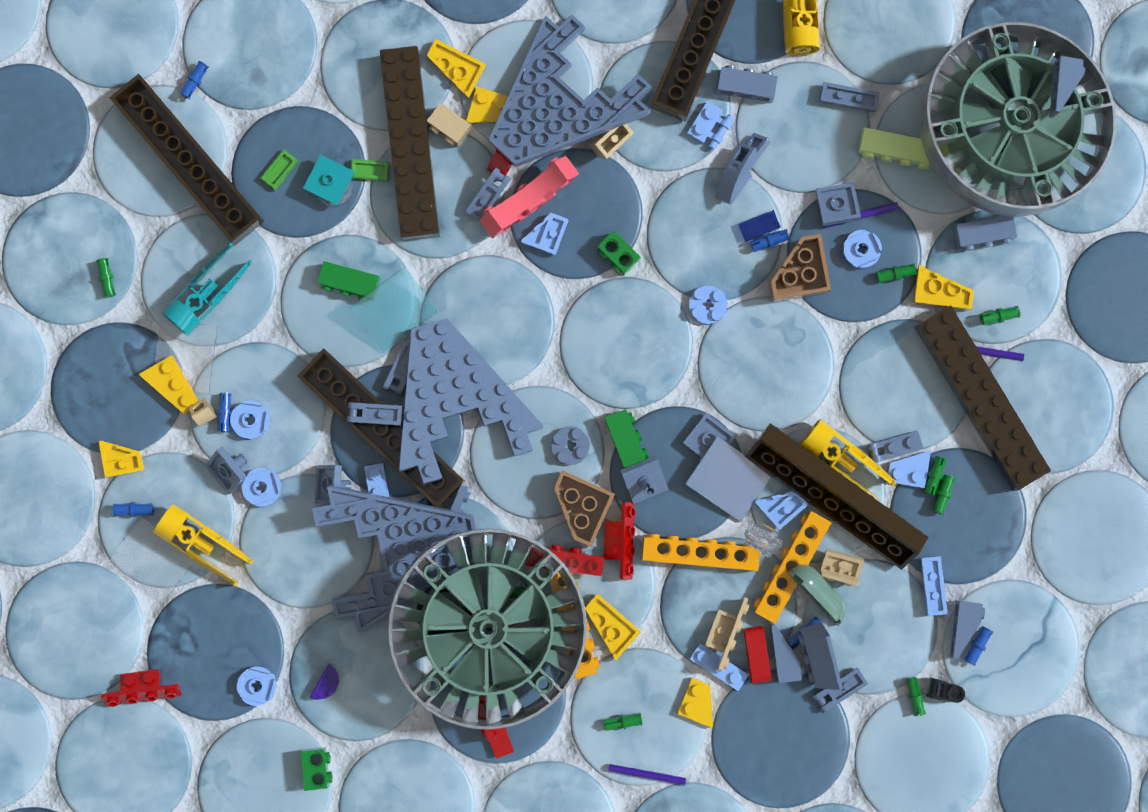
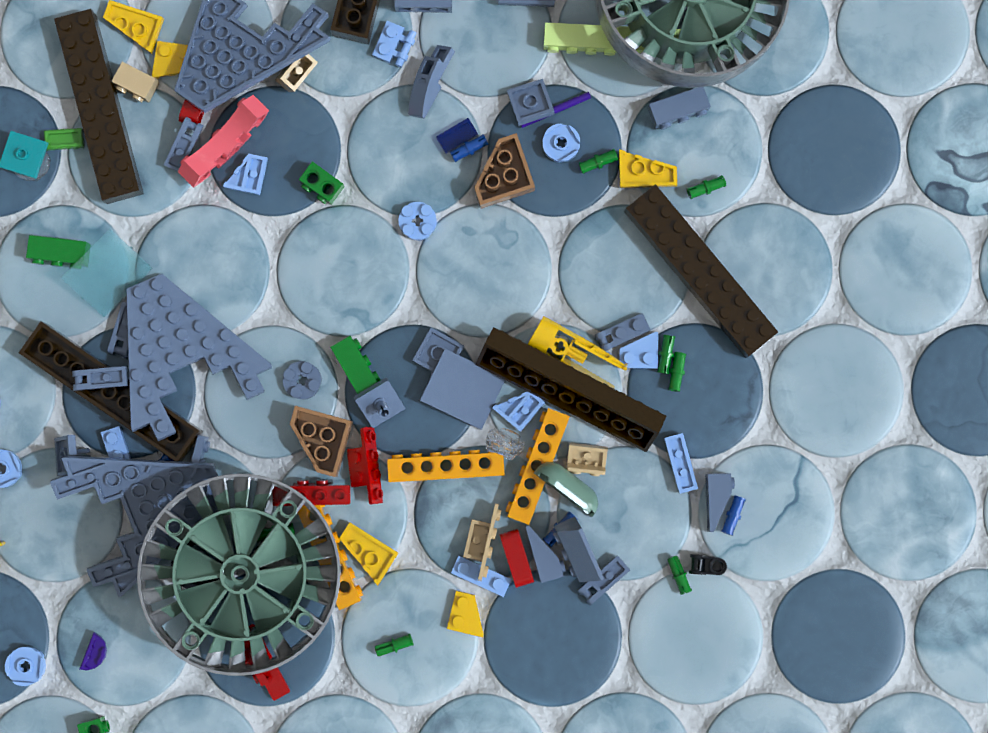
camera: 10 degrees left, 0 degrees up
(647, 774) = (425, 693): dark purple bar -> none
(1001, 353) = (712, 224): dark purple bar -> none

